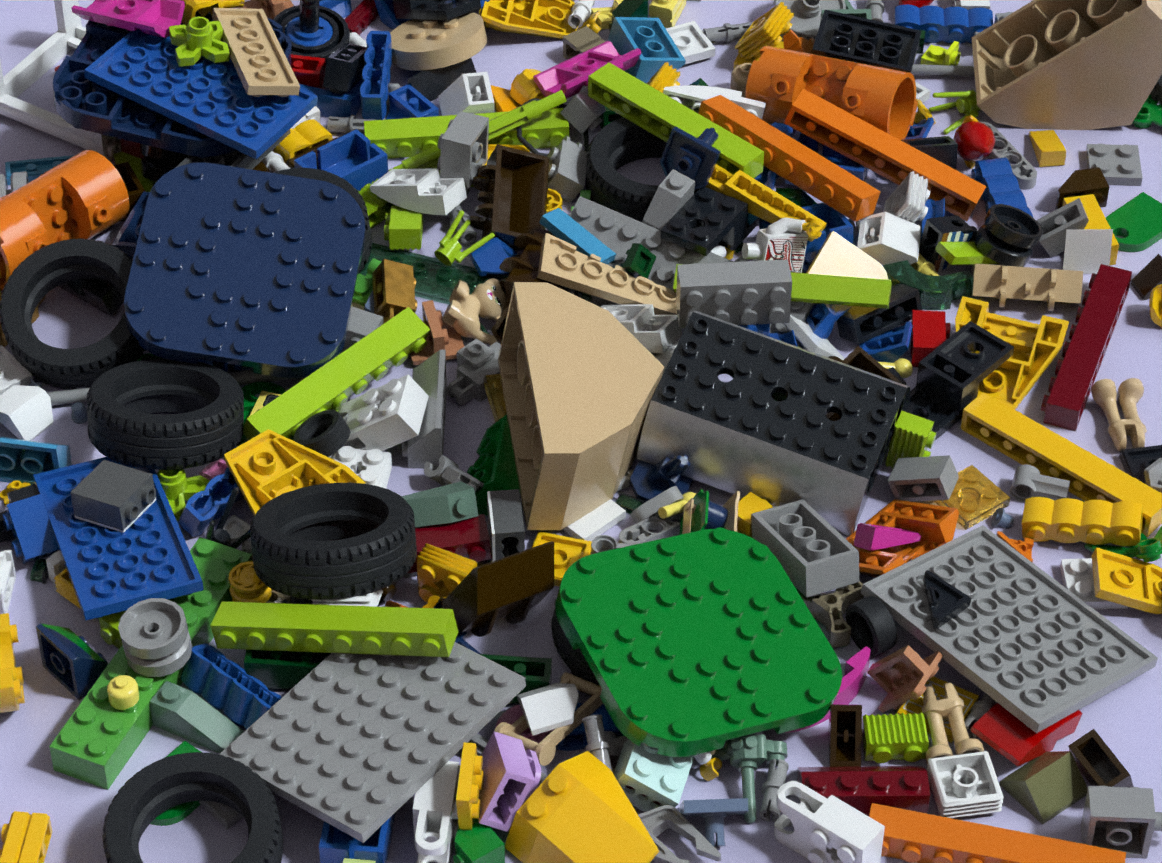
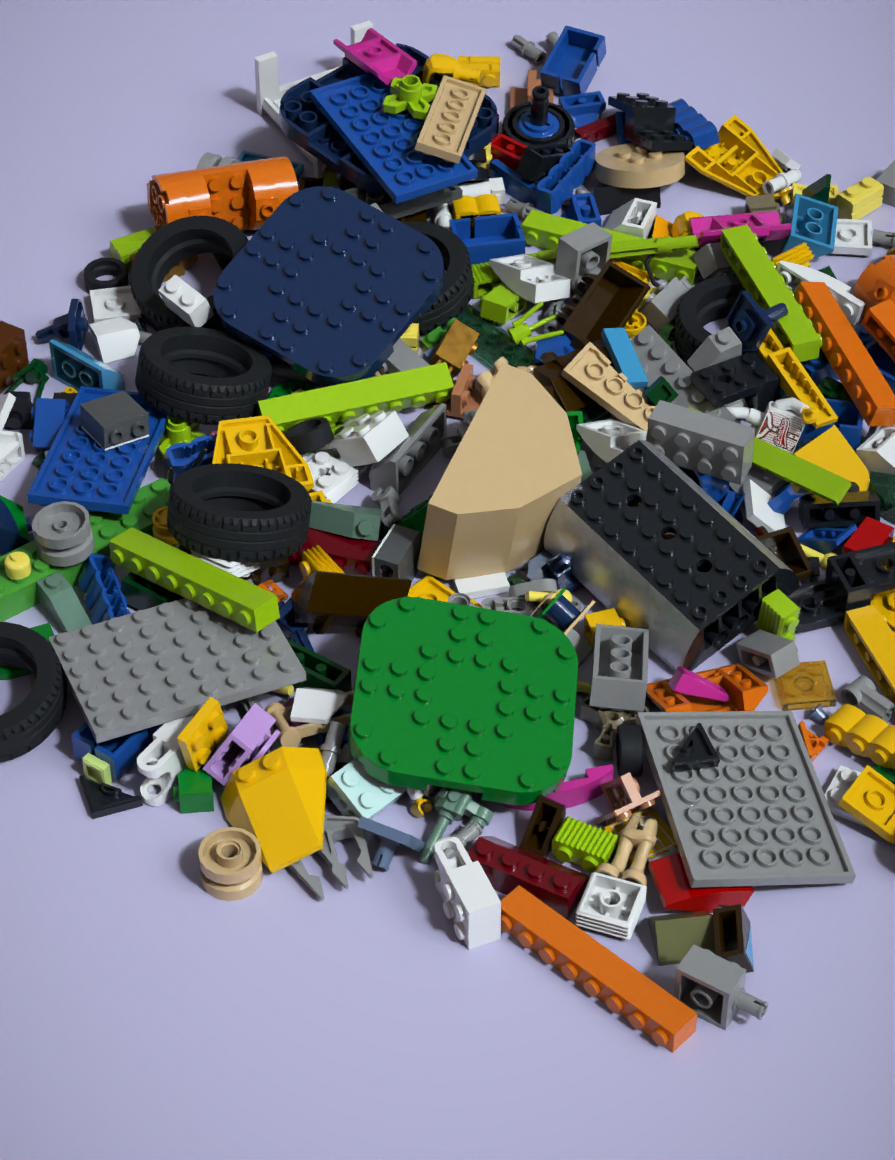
camera: 30 degrees right, 0 degrees up
(98, 341) = (186, 302): none -> white brick

